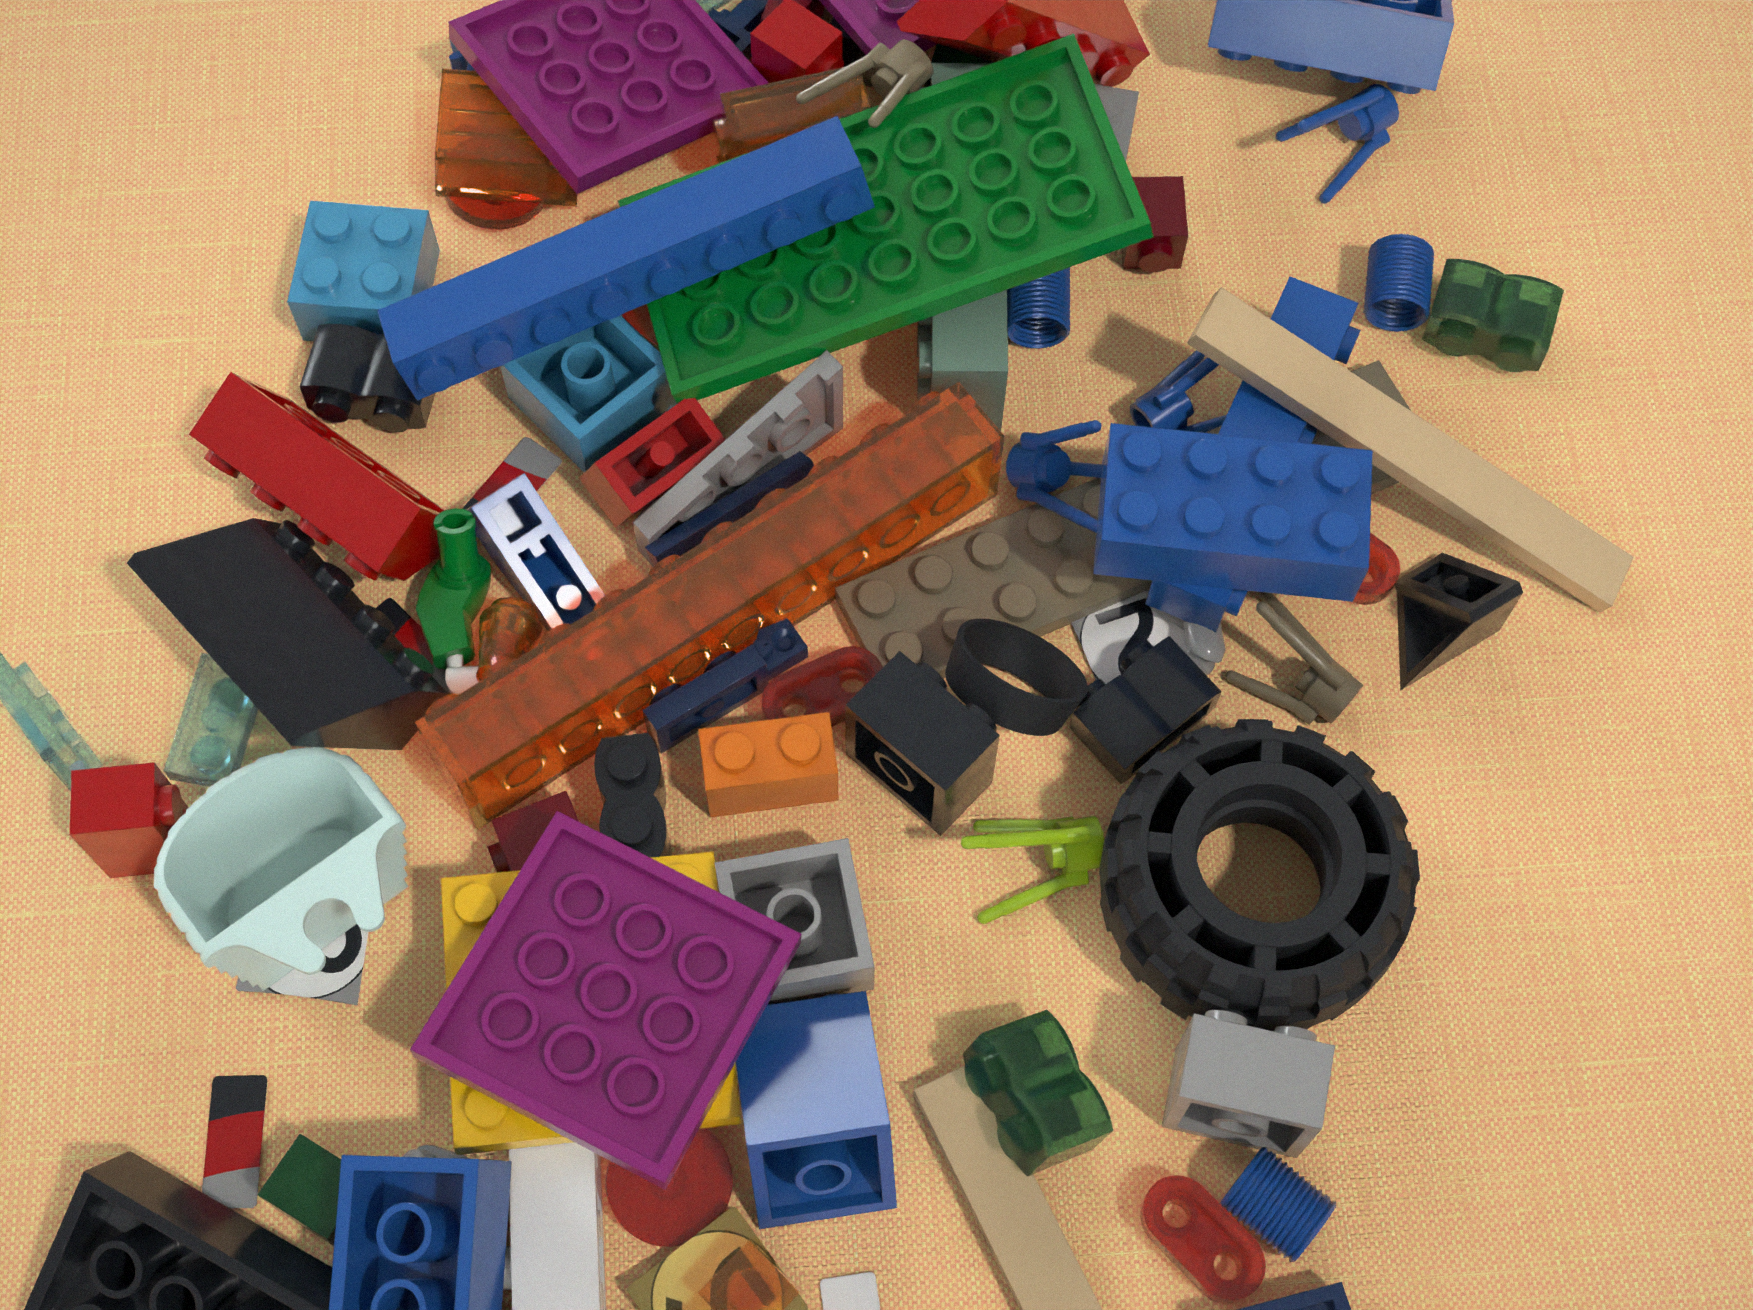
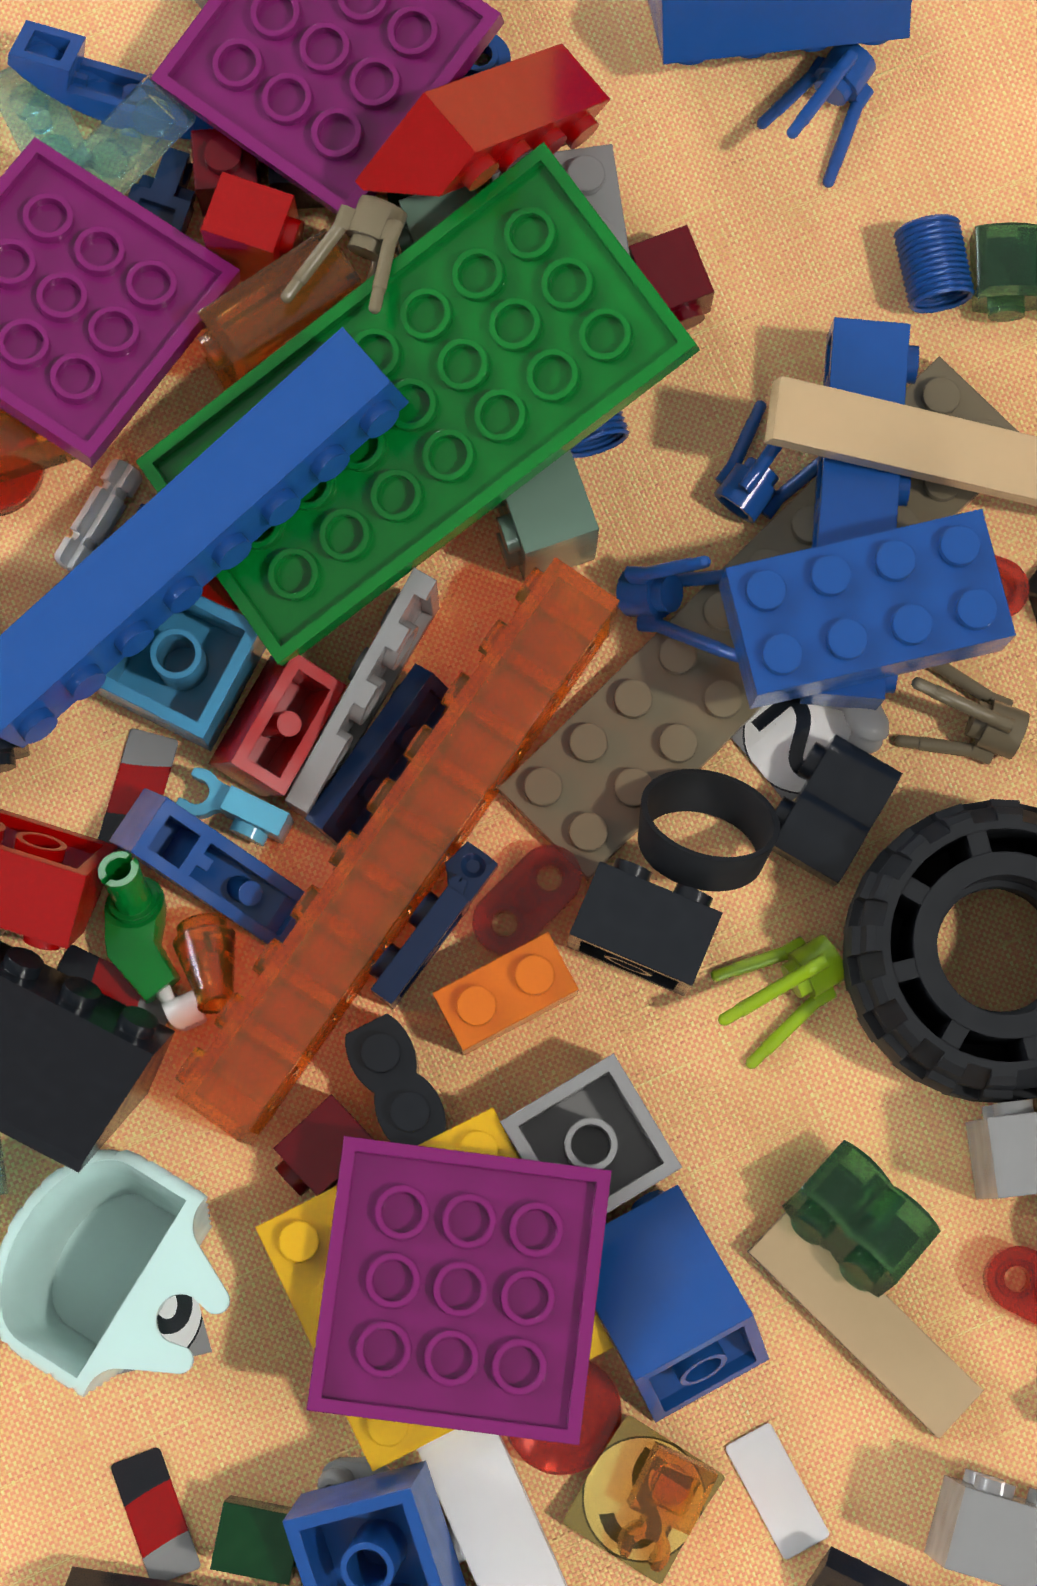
camera: 20 degrees left, 15 degrees up
(599, 533) = (251, 816): none -> medium azure plate

